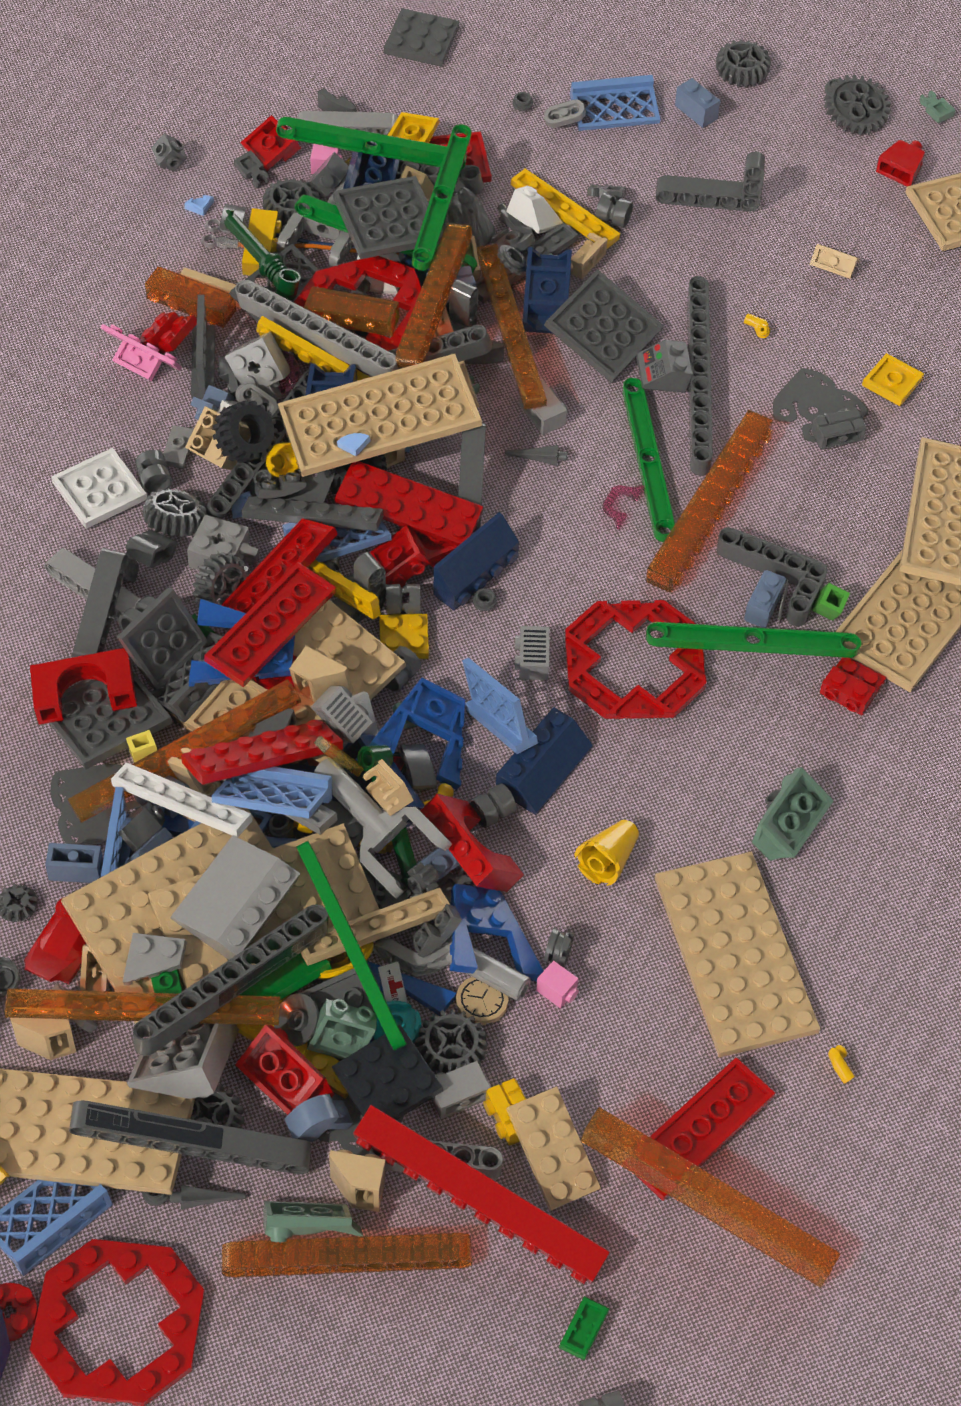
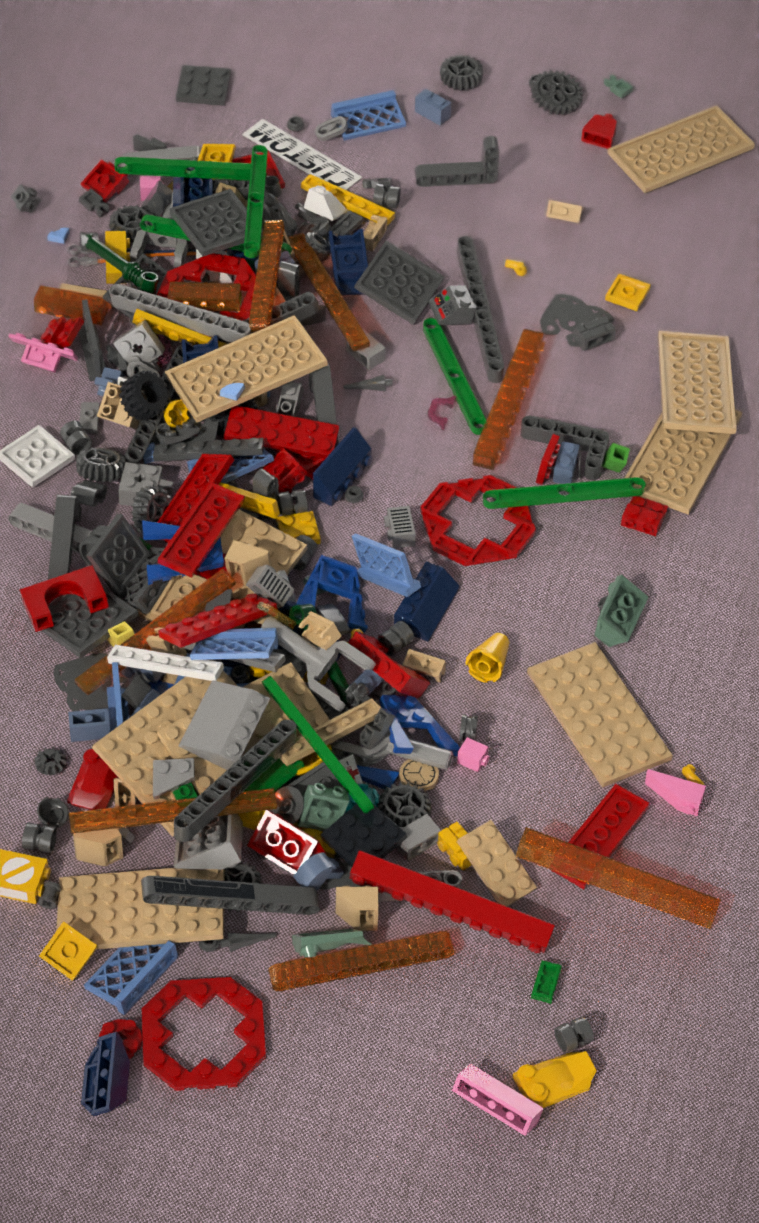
camera: 10 degrees left, 5 degrees down
(431, 462) = (290, 399): none -> light grey slope
(521, 142) = (301, 154): none -> white sticker
(521, 848) = (425, 664): none -> tan hinge
(742, 591) = (548, 460): none -> red plate
(819, 1085) = (680, 793): none -> bright pink slope

